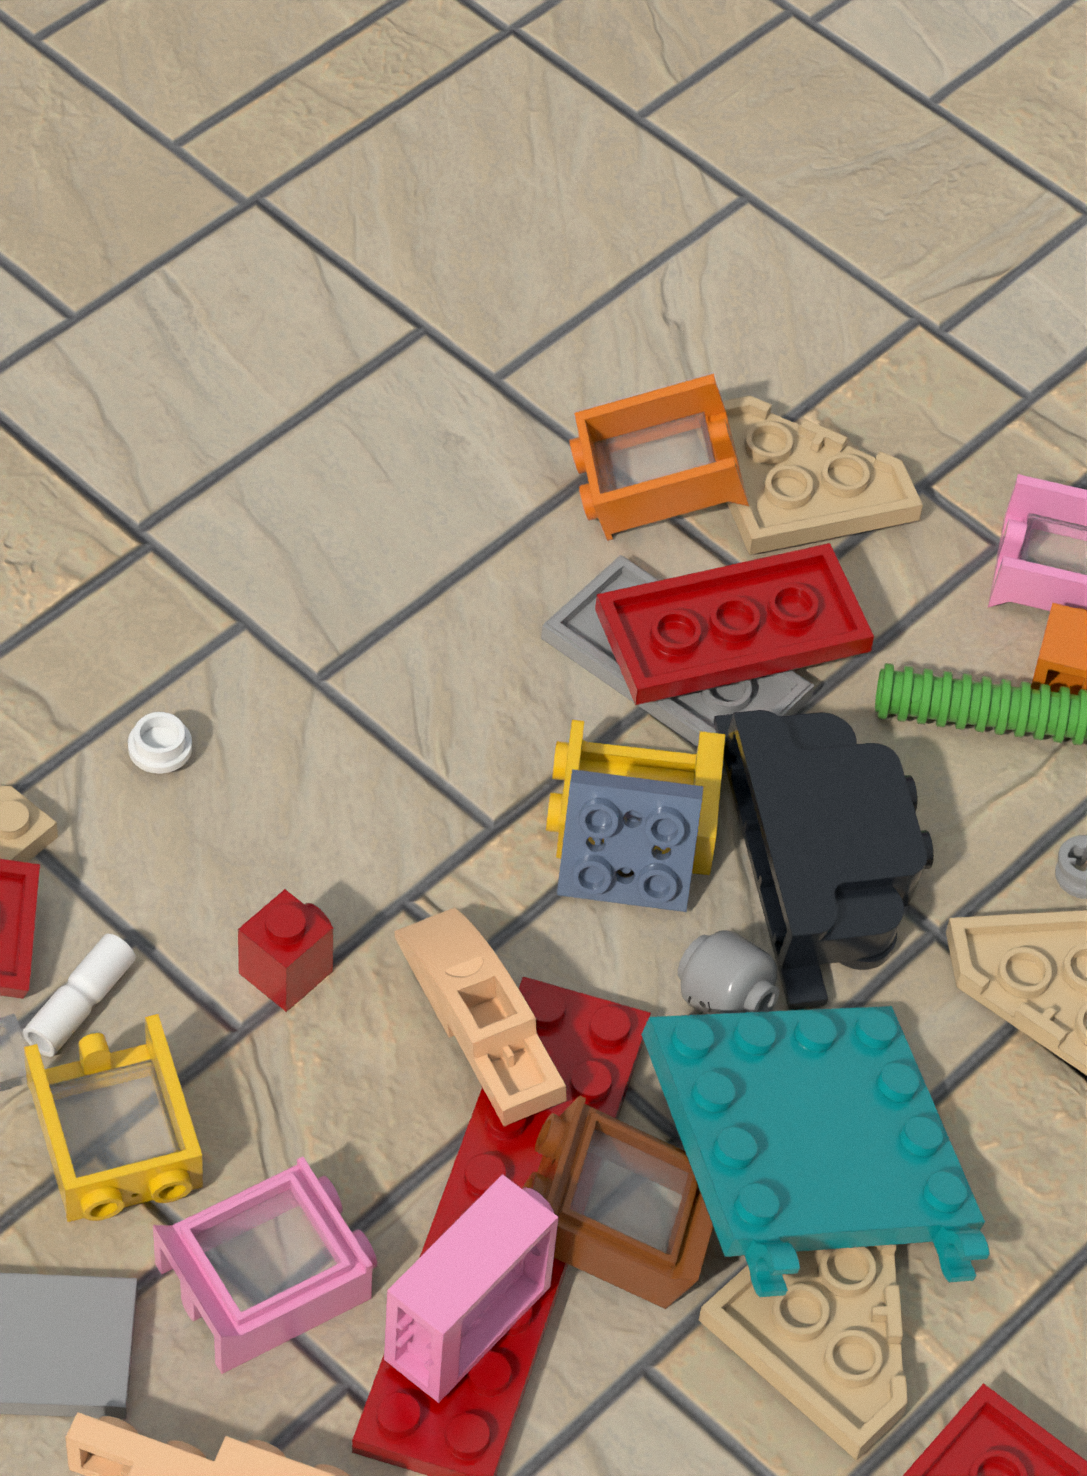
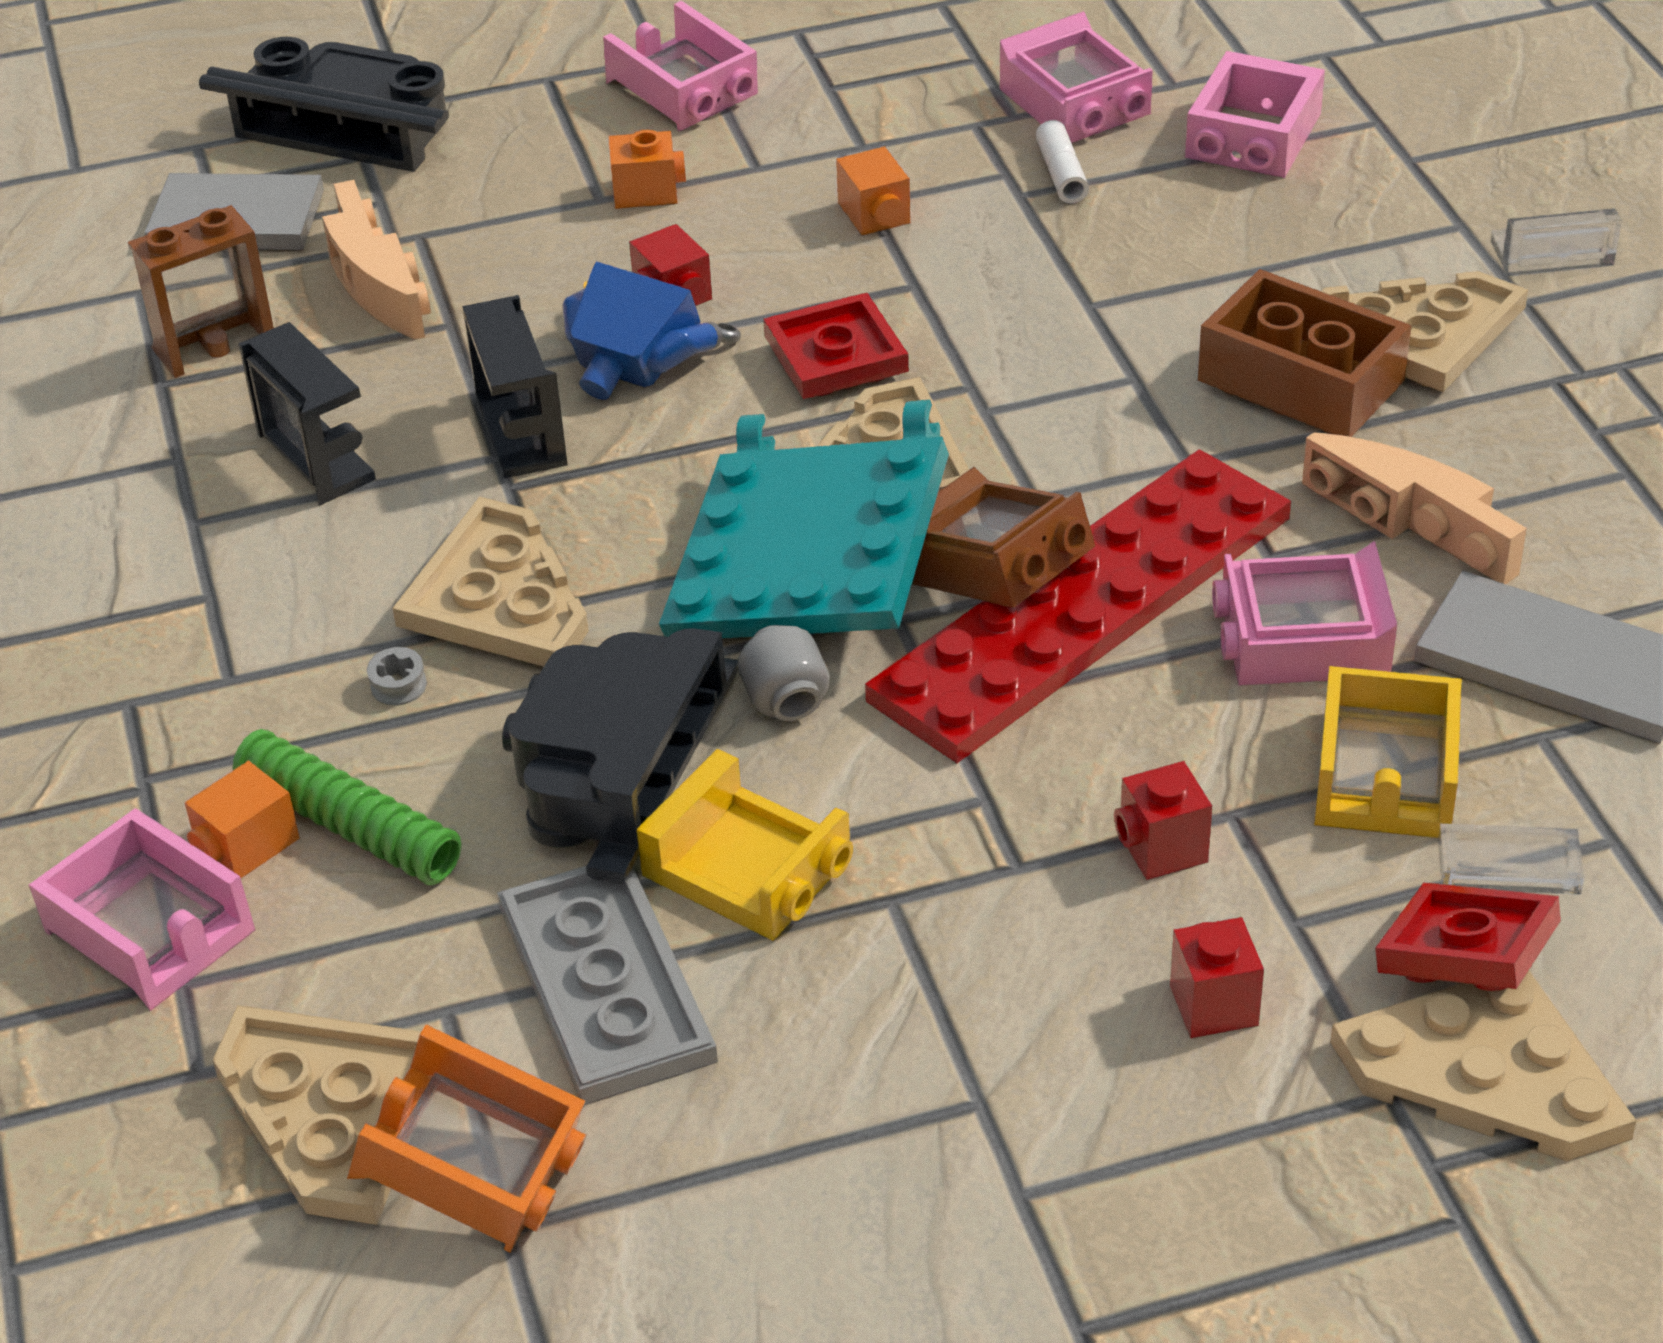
camera: 145 degrees left, 10 degrees down
(84, 988) = (1367, 874): white piece -> none
(159, 743) = (1186, 1071): white plate -> none
(168, 811) = (1216, 977): none -> red brick
(470, 1287) = (1198, 427): bright pink window -> none
(483, 1012) = (1021, 711): light nougat slope -> none
(631, 819) = (791, 777): sand blue plate -> none
(733, 623) = (537, 941): red plate -> none

